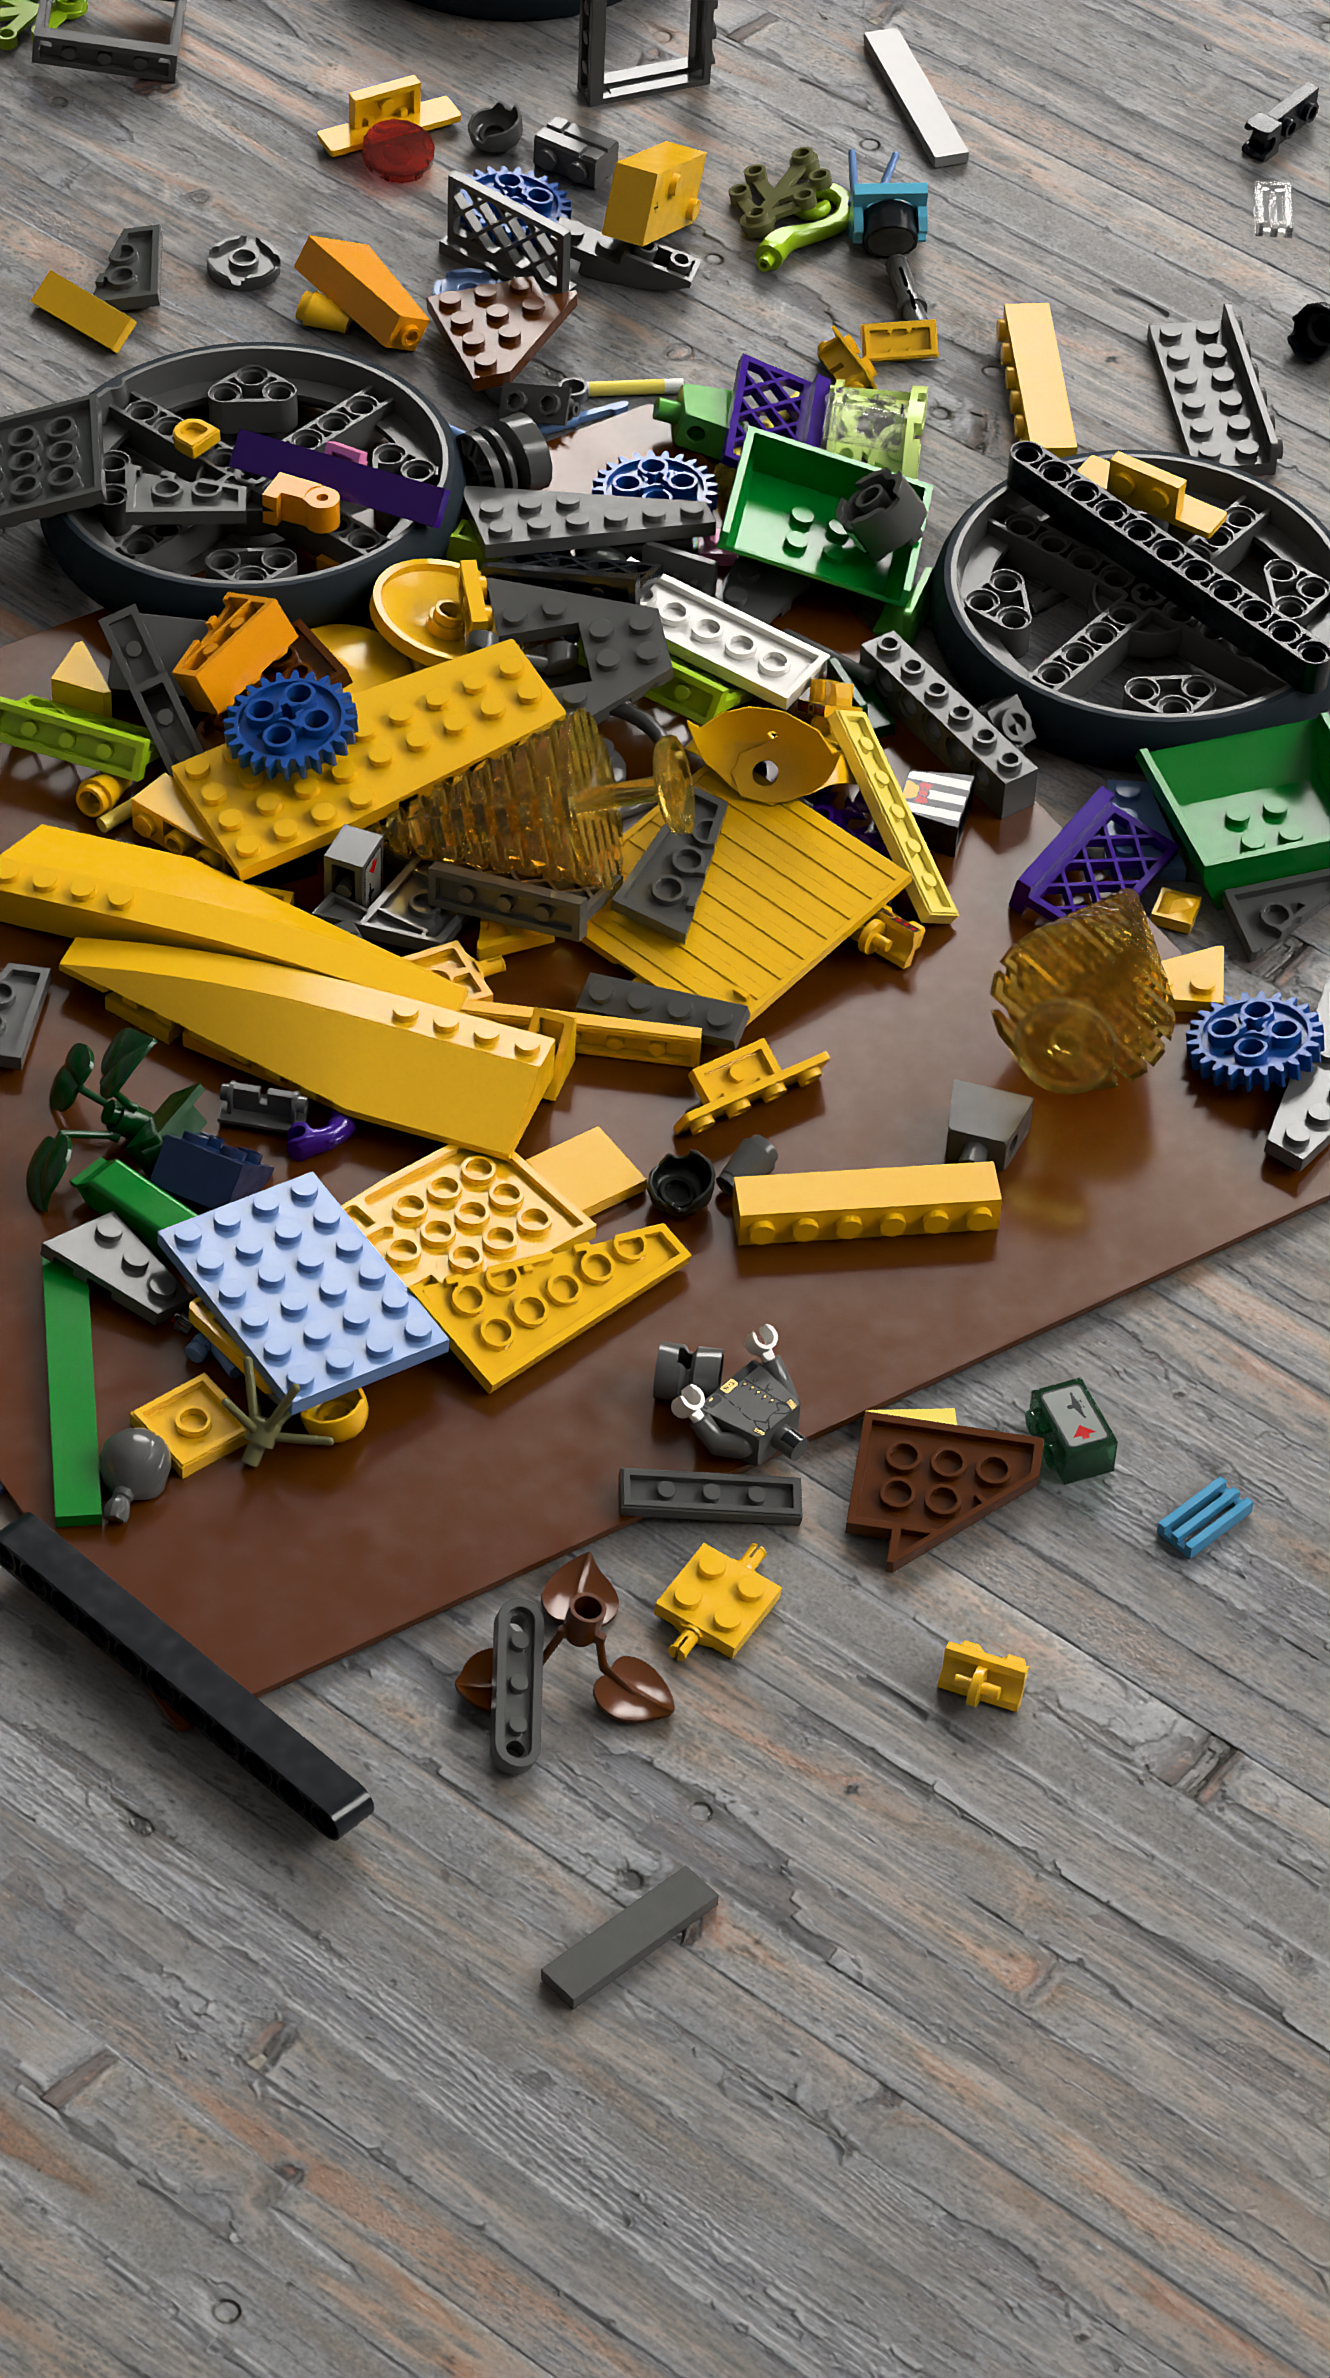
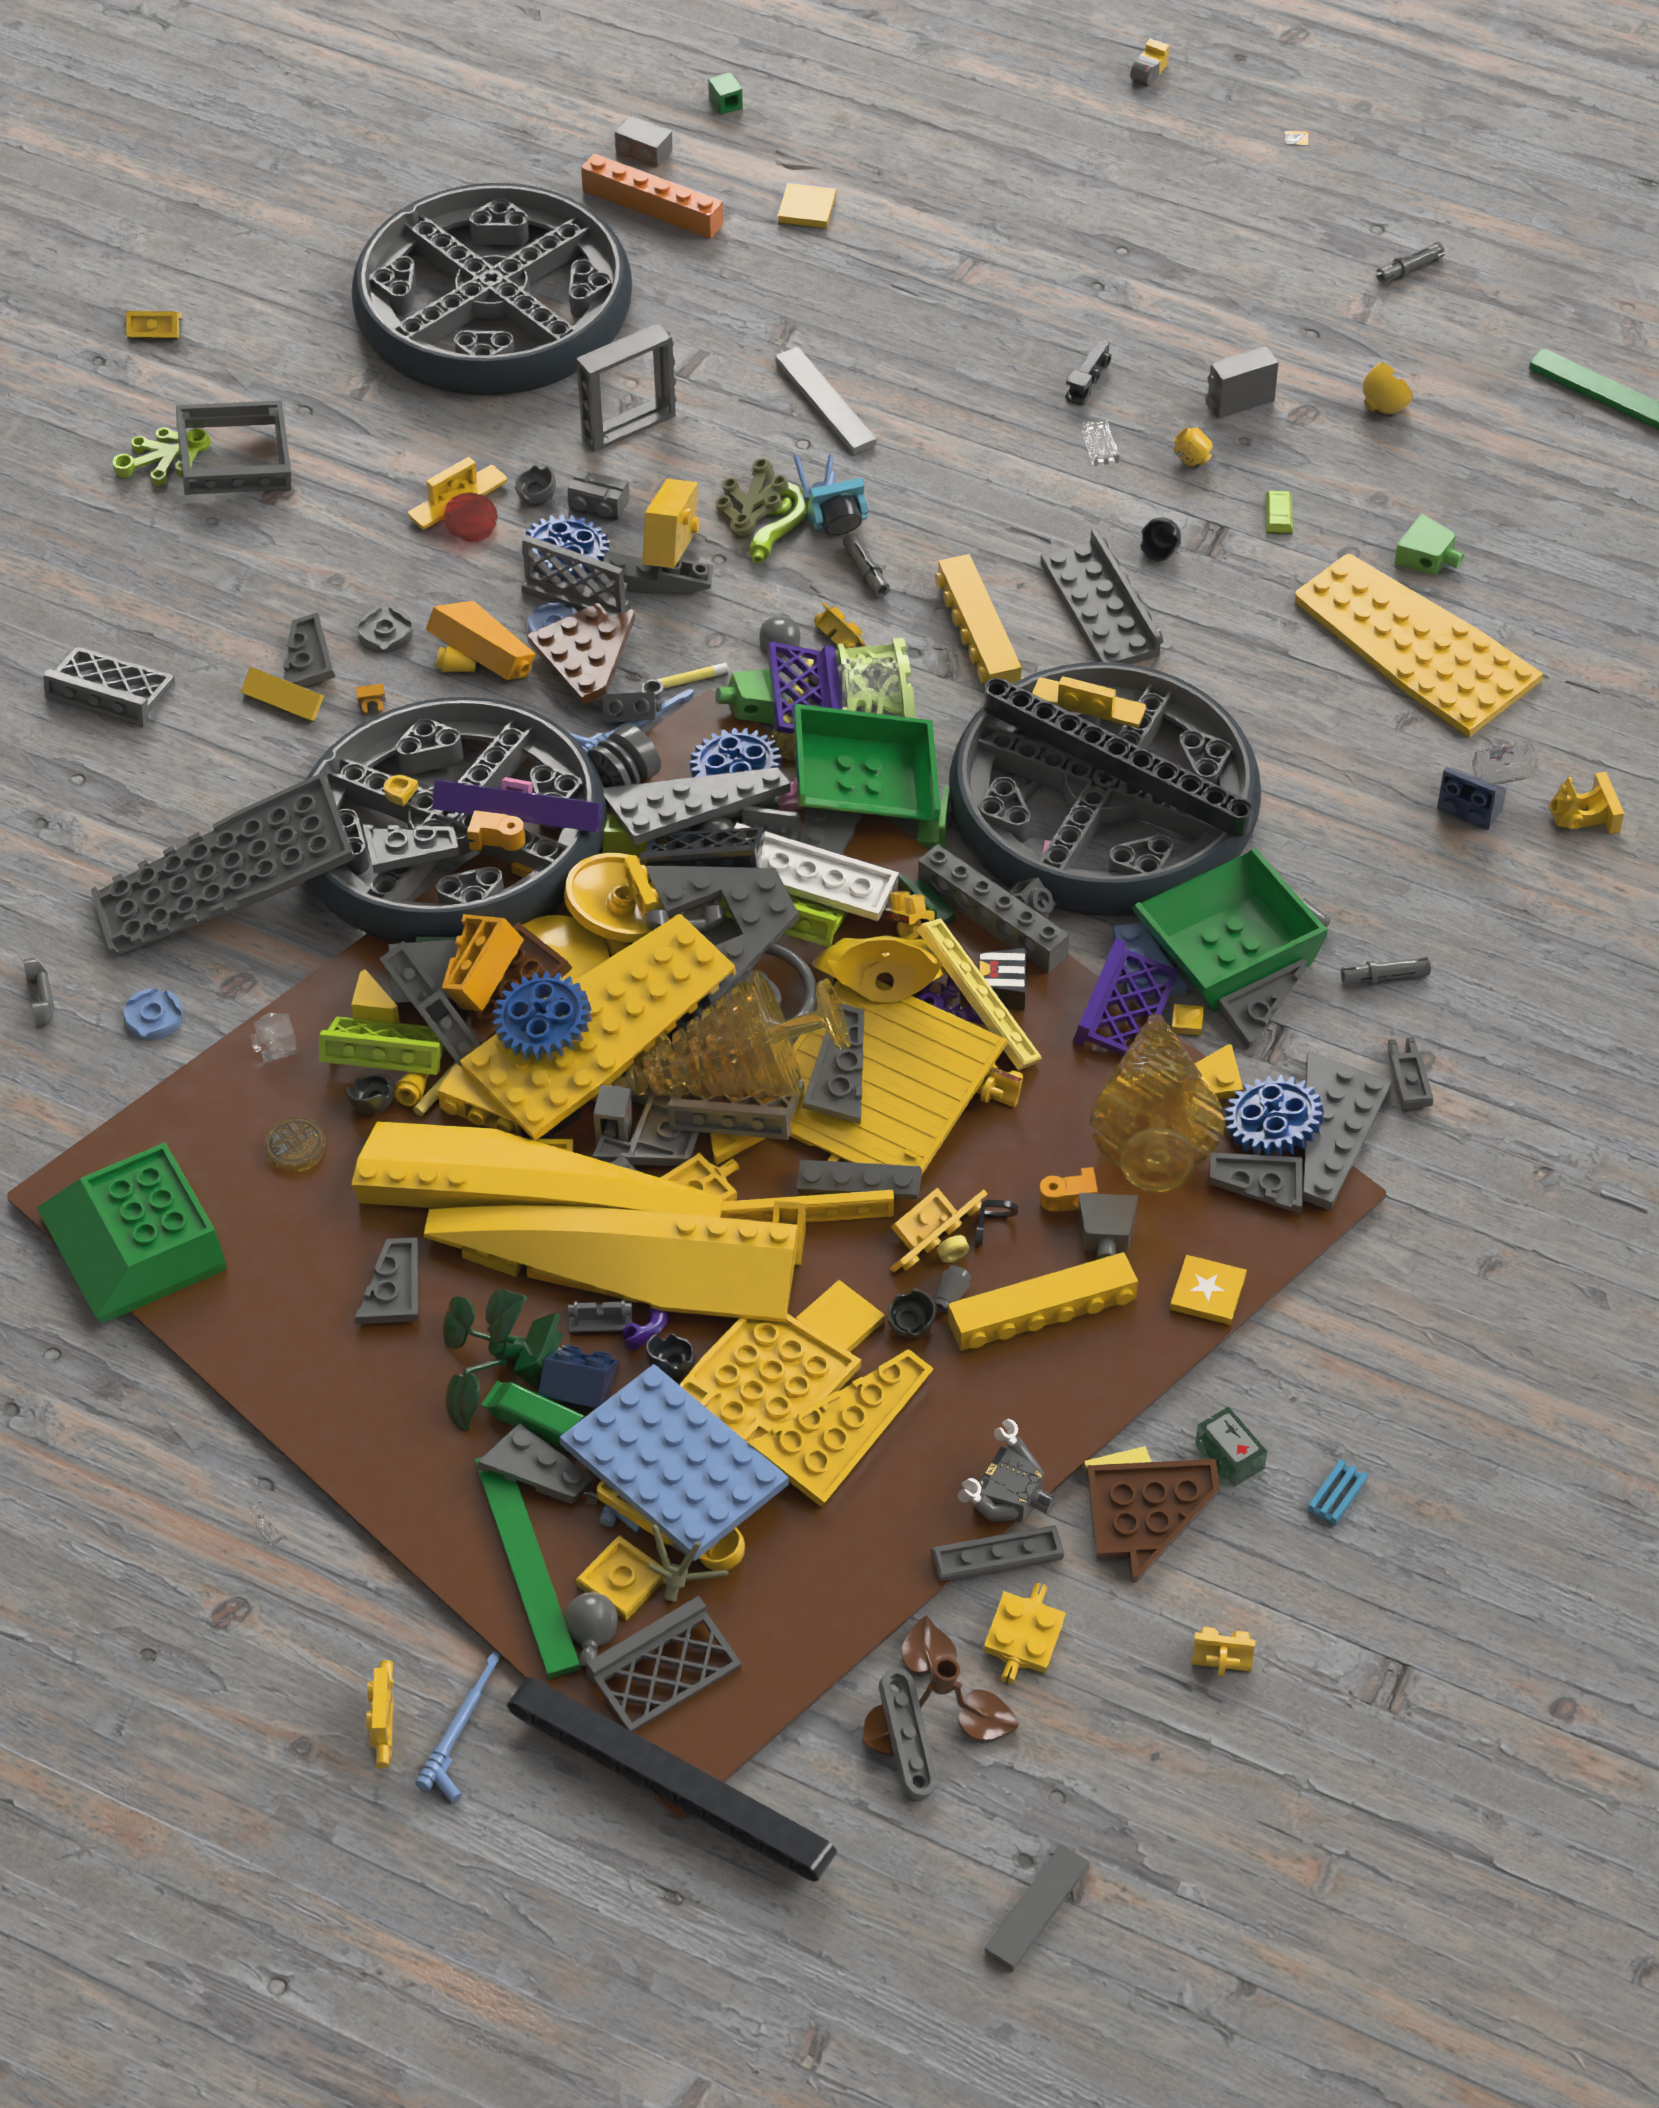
camera: 10 degrees left, 5 degrees up
(44, 791) = (371, 1094): none -> pearl dark grey hair
(192, 1507) = (647, 1641): none -> dark grey fence
(198, 331) = (371, 694): none -> light orange tile
(341, 1171) = (671, 1355): none -> black hair
(679, 1368) = (958, 1463): dark grey wheel -> none
(764, 1117) = (953, 1249): none -> light yellow tile
(768, 349) = (779, 630): none -> dark grey hair
(835, 1070) = (993, 1203): none -> black piece
(851, 667) = (914, 877): dark grey bar -> none
(882, 514) = (904, 752): dark grey brick -> none
(899, 341) = (870, 603): yellow plate -> none
(932, 1079) = (1063, 1193): none -> light orange leg
(1099, 1235) = (1208, 1289): none -> yellow tile
(1215, 1113) = (1260, 1177): none -> dark grey wing

